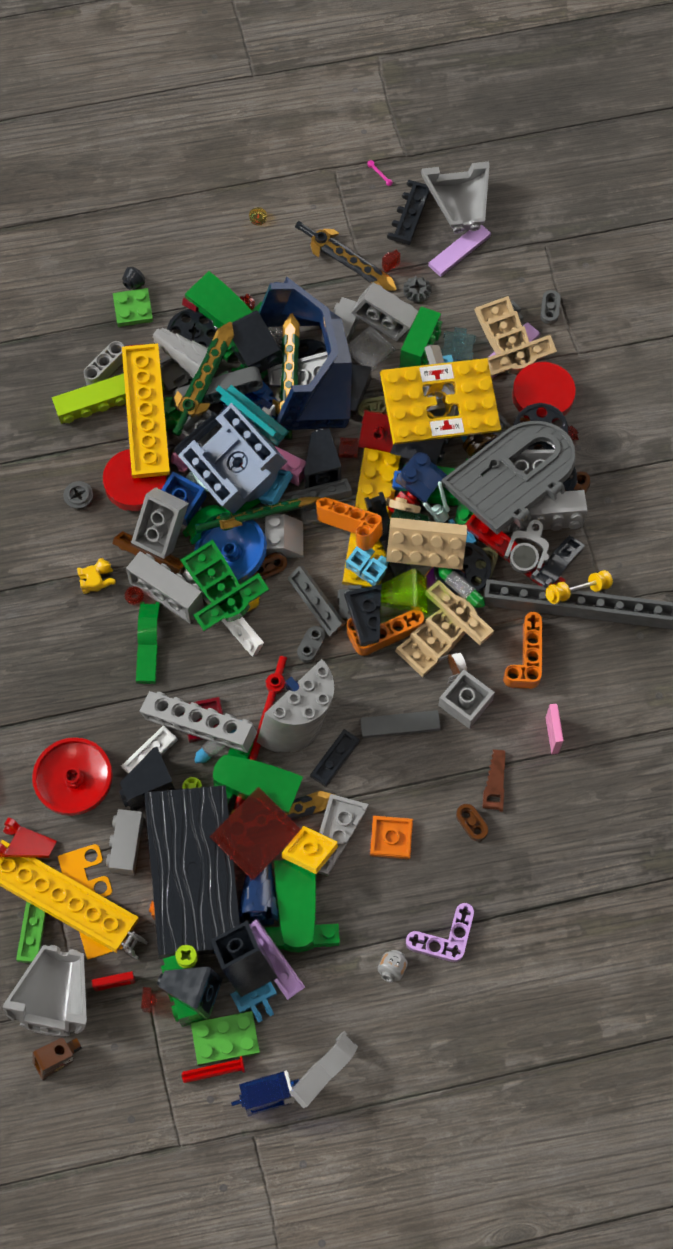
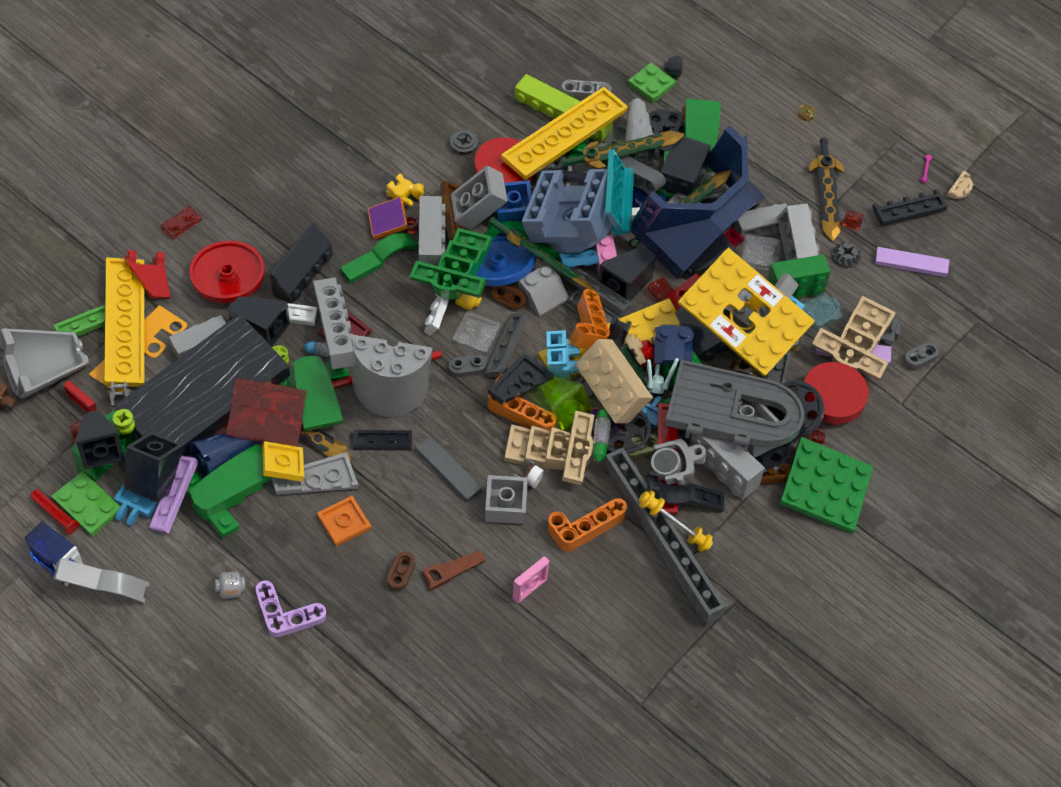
camera: 50 degrees right, 10 degrees down
(114, 609) = (387, 218): none -> dark purple tile
(114, 711) = (300, 264): none -> black slope
(286, 616) = (476, 333): none -> clear plate
(417, 160) = (961, 187): none -> tan plate
(460, 195) = (954, 227): light grey cone -> none
(617, 458) = (826, 485): none -> green plate

